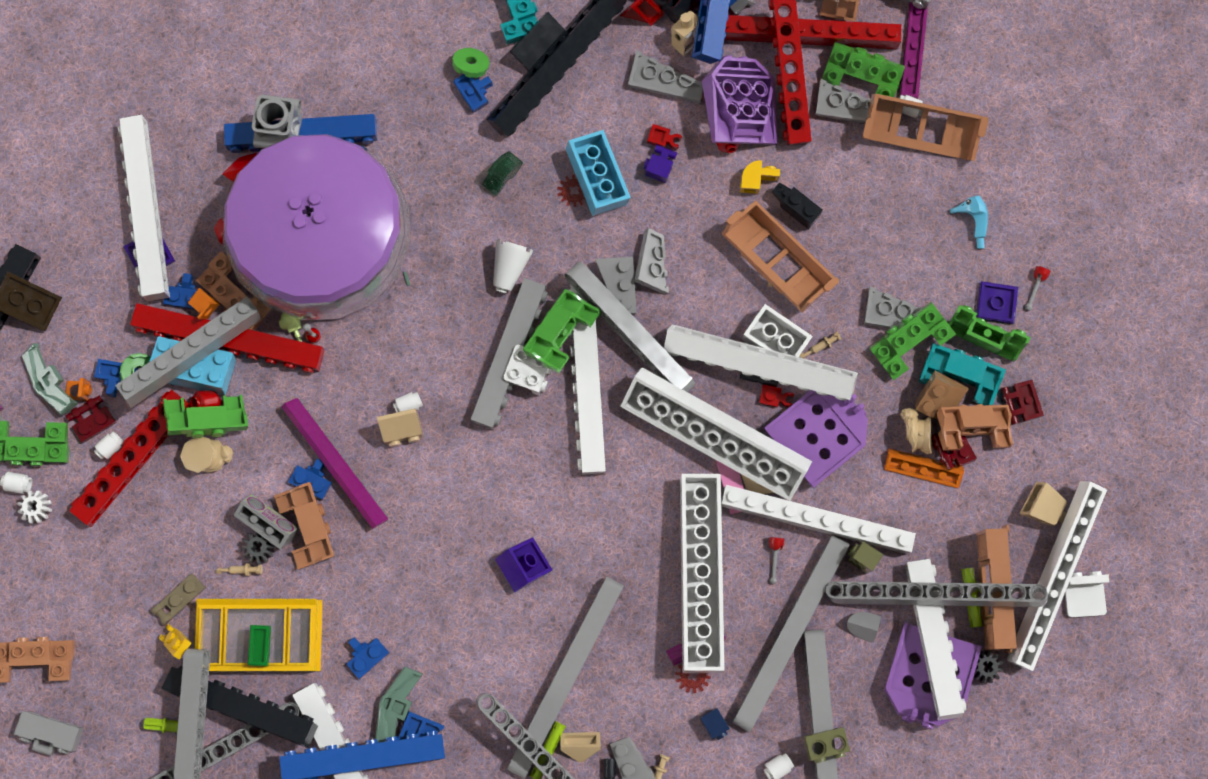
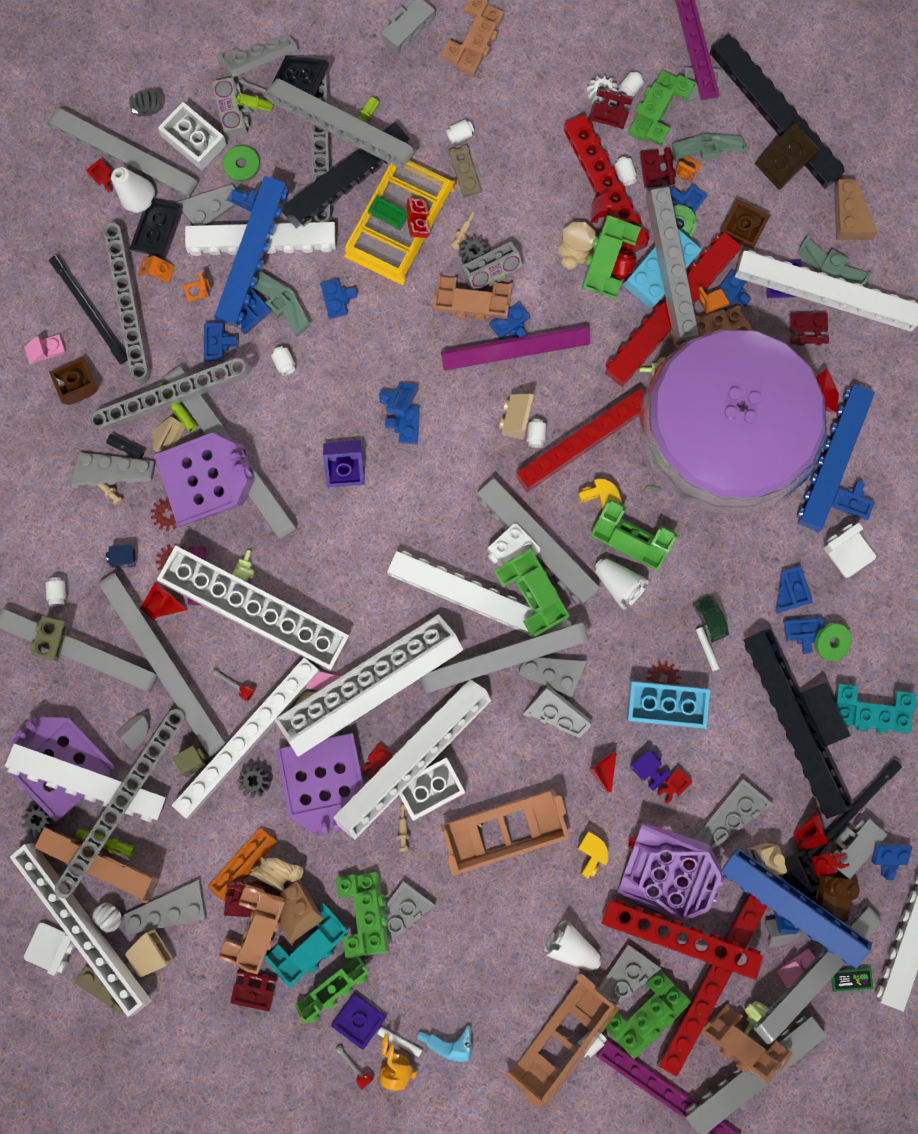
camera: 120 degrees right, 0 degrees up
(54, 221) = (852, 213): none -> medium nougat wedge
(57, 488) = (608, 114): none -> dark red plate
(112, 310) = (745, 224): none -> reddish brown slope
(115, 217) = (831, 264): none -> sand green plate
(140, 623) = (460, 131): none -> white brick
(159, 449) = (600, 207): none -> red slope
(175, 641) = (428, 149): yellow hinge -> none
(182, 213) = (809, 323): none -> dark red plate
(251, 615) = (416, 217): none -> red slope
(270, 108) = (848, 447): light grey piece -> none
(311, 333) = (641, 380): red hinge -> none
(334, 100) = (853, 502): none -> blue hinge
(381, 84) = (849, 550): none -> white bracket
(395, 358) = (580, 442): none -> red brick
(433, 316) = (602, 490): none -> yellow brick
(437, 544) = (400, 399): none -> blue hinge
(441, 116) = (792, 590): none -> blue wing
(453, 672) = (283, 361): none -> white brick
(457, 527) = (405, 425): none -> blue hinge
(465, 271) = (631, 539): none -> bright green bracket
(465, 747) = (216, 342): none -> blue hinge
(529, 165) = (707, 649): none -> white piece
(628, 696) = (178, 479): none -> medium lavender hinge
(652, 696) = (160, 509): none -> clear red gear
(669, 605) = (242, 569): none -> yellowish green piece
(681, 199) = (605, 772): none -> red slope
(737, 663) = (160, 603): none -> red slope
(797, 205) = (546, 877): black hinge -> none
(844, 157) = (572, 948): none -> white cone
(855, 500) = (256, 788): none -> dark grey gear
(994, 261) = (400, 1042): none -> white piece
(996, 509) = (172, 909): none -> light grey wing
(1020, 248) = (398, 1072): none -> light orange hair
(1033, 559) = (106, 917): none -> white piece
(1093, 544) = (91, 983): none -> dark tan plate

